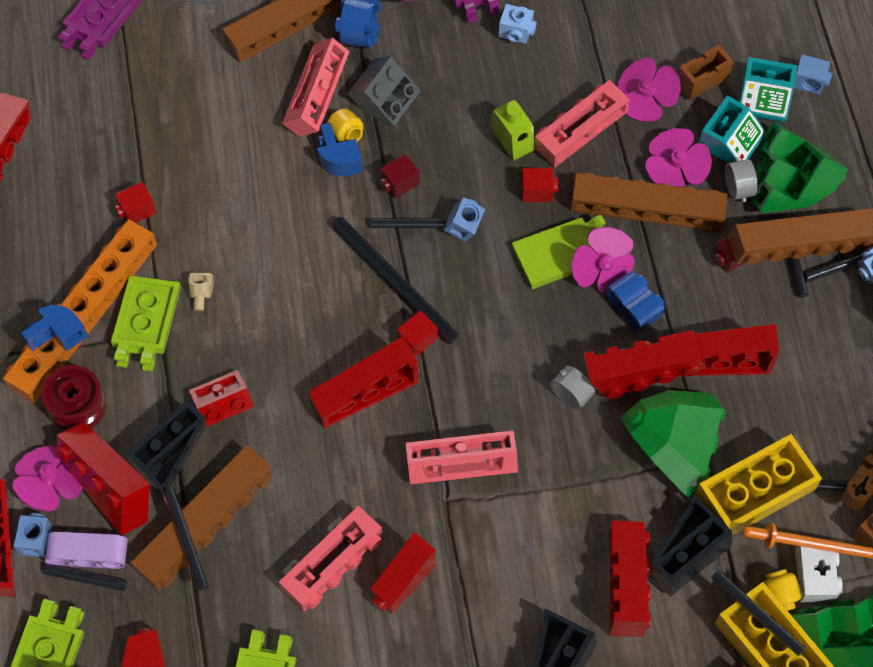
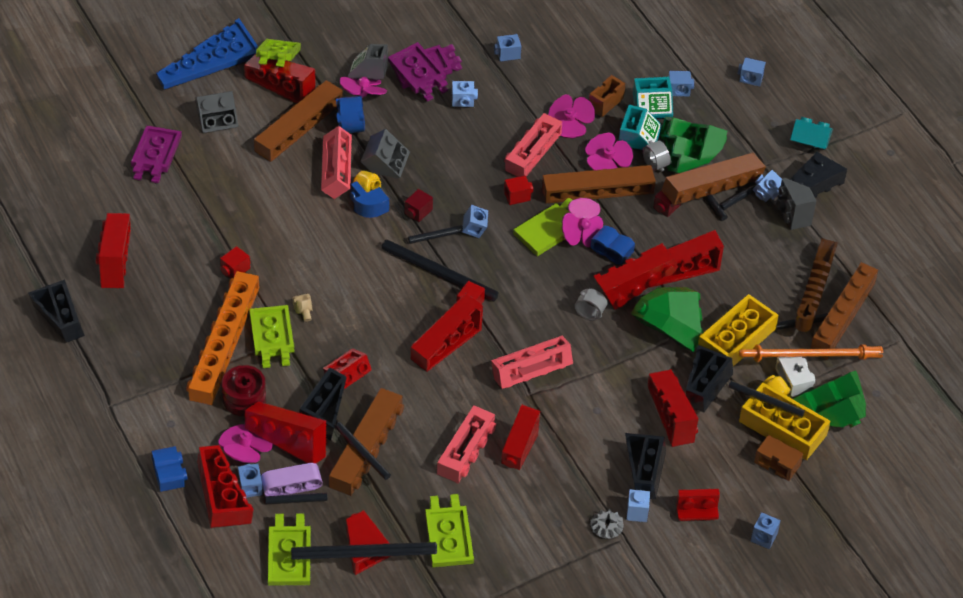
camera: 20 degrees left, 15 degrees down
(55, 322) = (216, 342): blue brick -> none
(509, 126) = (487, 158): lime torso -> none

